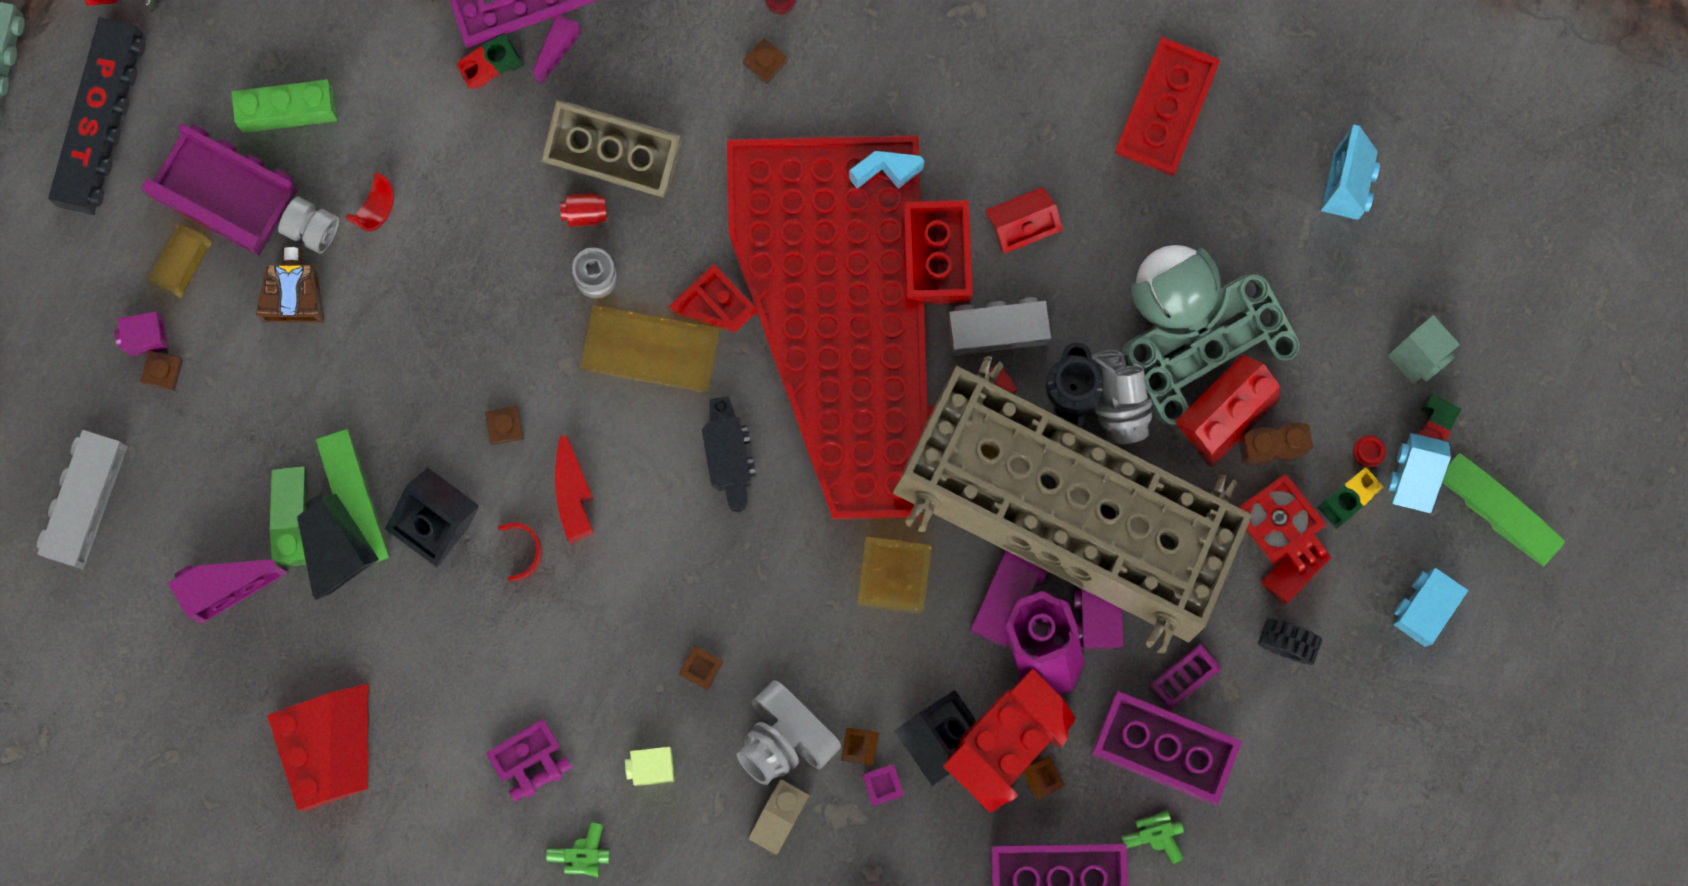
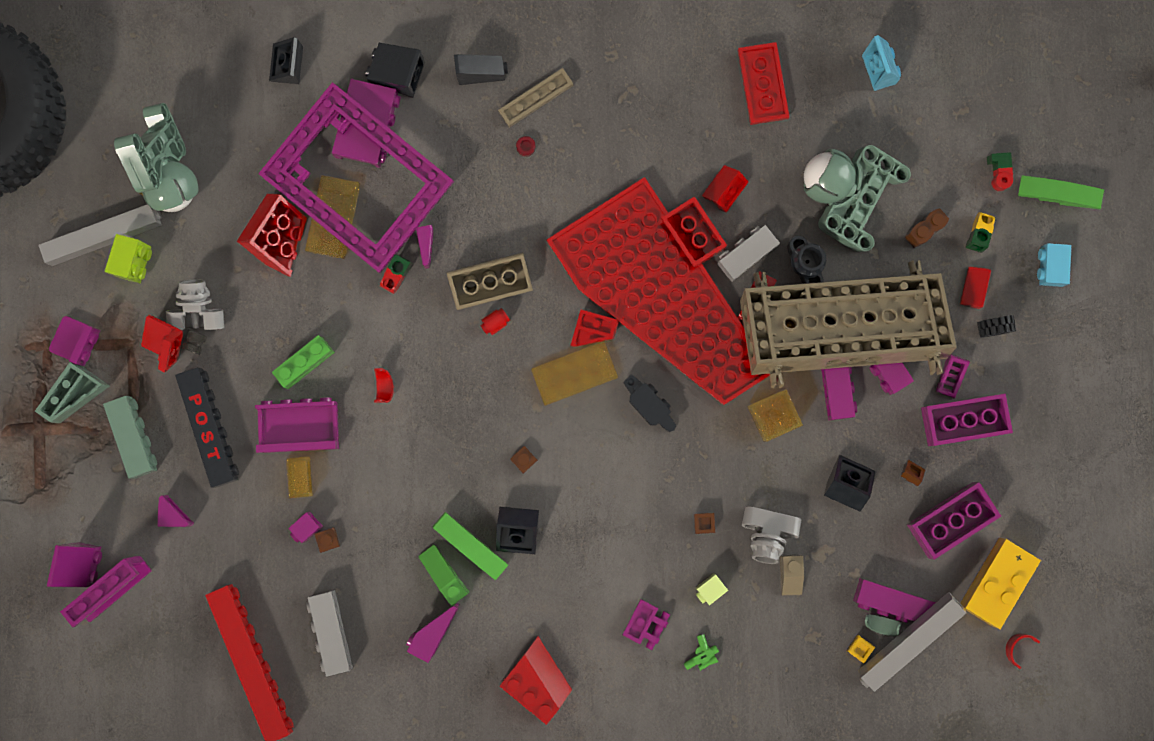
camera: 25 degrees left, 5 degrees up
(290, 291) = (368, 457): torso -> none
(305, 223) = (356, 417): light grey wheel -> none
(332, 545) = (476, 577): black slope -> none
(539, 550) = (575, 507): red helmet -> none
(571, 493) = (581, 472): red slope -> none
(594, 272) = (522, 351): light grey wheel -> none
(765, 60) = (539, 185): reddish brown plate -> none
(859, 746) = (810, 514): reddish brown plate -> none
(883, 785) = (834, 526): magenta plate -> none
(898, 168) = (643, 201): medium azure slope -> none
(1009, 739) = (885, 464): red piece -> none
(1046, 639) = (875, 405): magenta brick -> none
(1125, 405) = (839, 252): light grey beam -> none
(1159, 833) = (987, 464): bright green piece -> none
(1229, 408) = (892, 223): red slope -> none
(1284, 523) = (956, 266): red piece -> none
(1369, 451) = (975, 202): red plate -> none
(1419, 472) = (1010, 198): brick -> none
(1425, 351) = (976, 132): sand green wedge -> none

